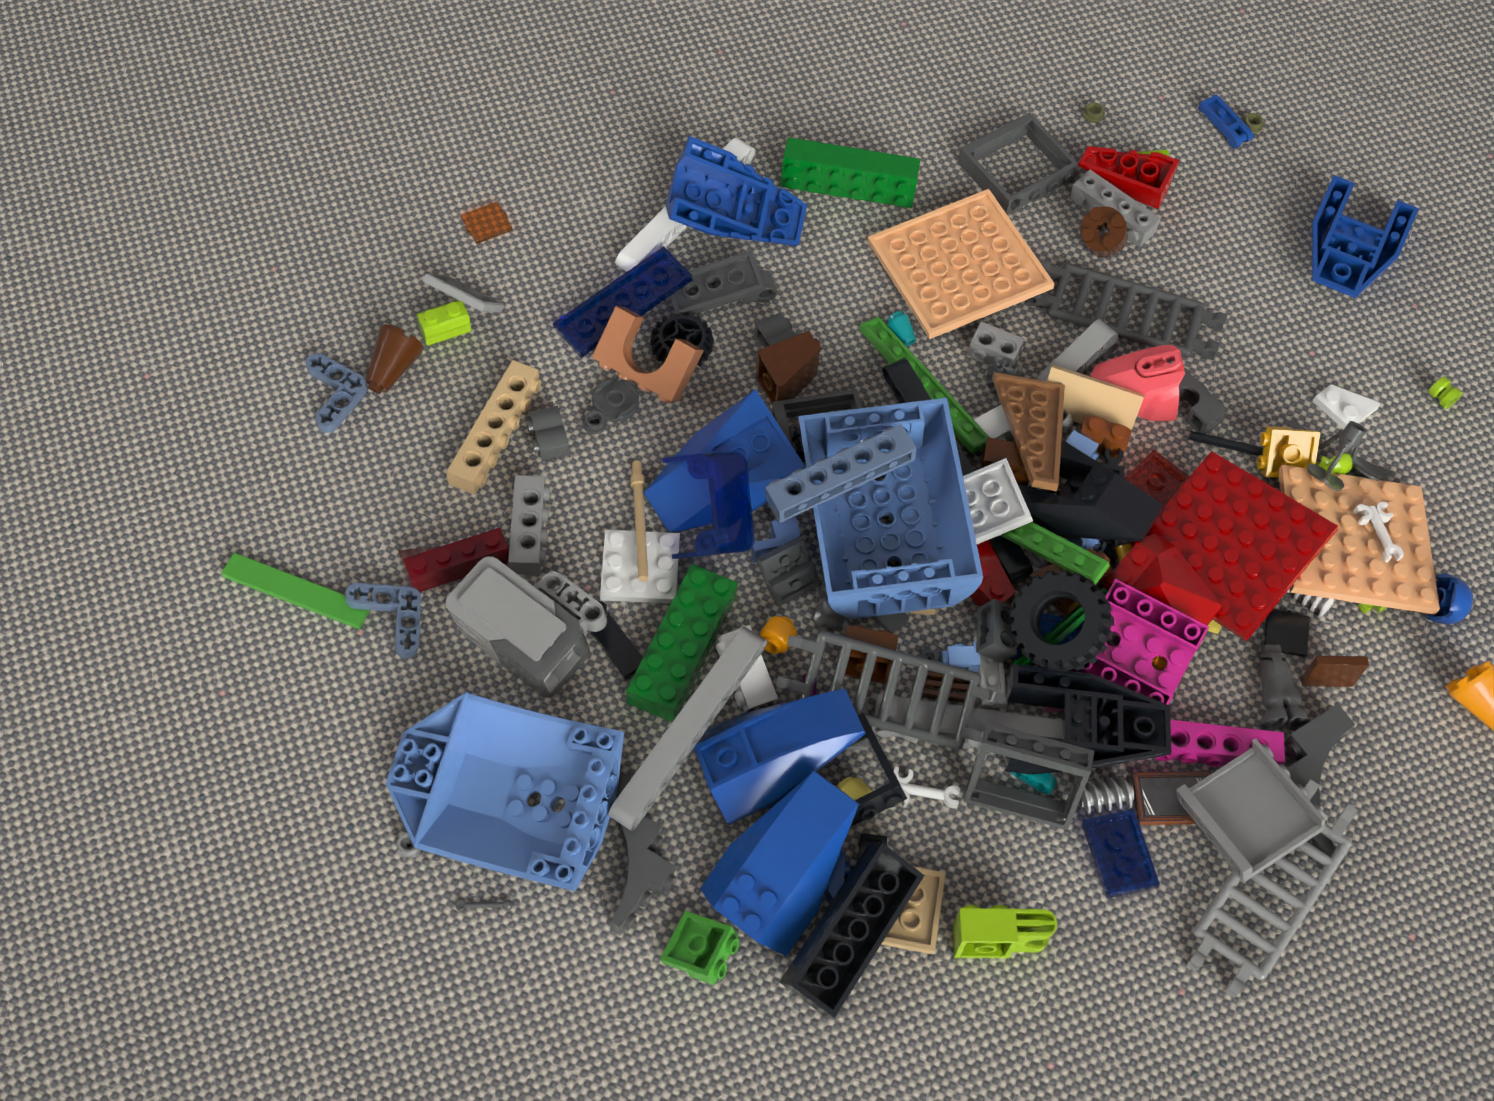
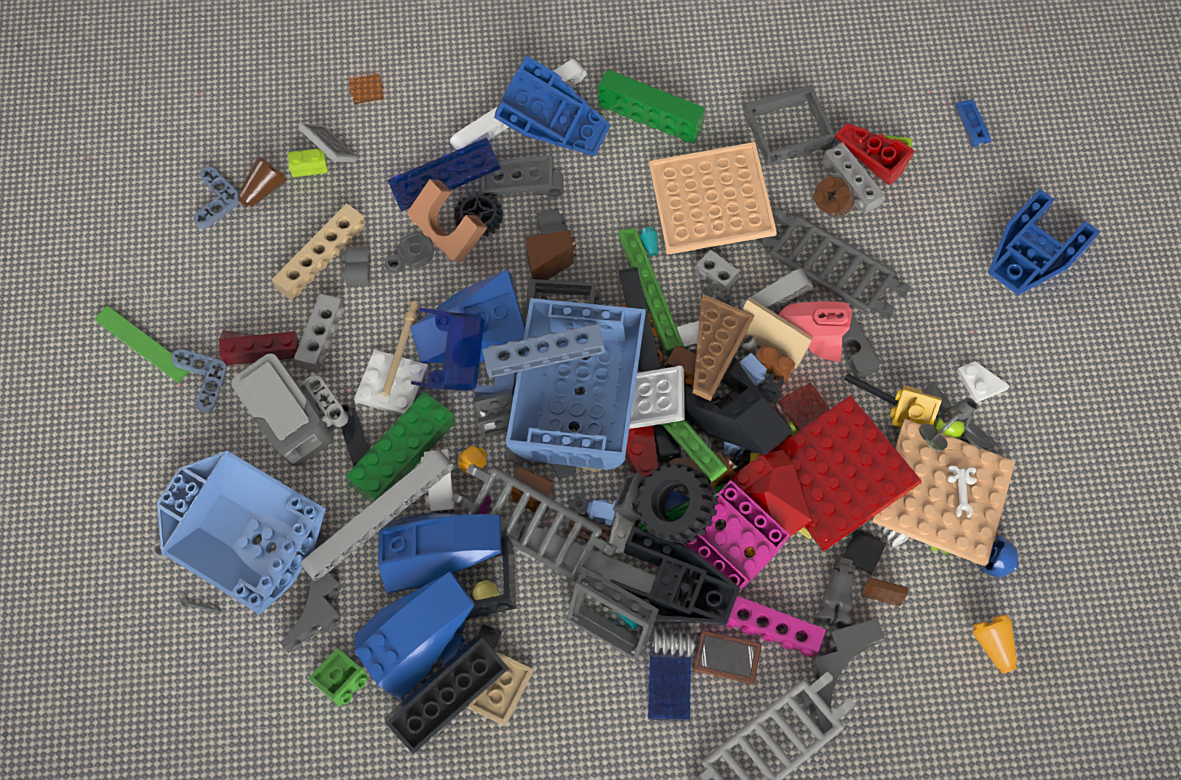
camera: 20 degrees right, 5 degrees up
(924, 791) = (528, 597): white bar -> none
(1000, 931) = (555, 723): lime brick -> none
(1094, 112) = (867, 94): olive plate -> none
(1252, 811) = (774, 684): light grey panel -> none
(1254, 122) = (995, 125): olive plate -> none
(1445, 392) = (1066, 389): lime wheel -> none

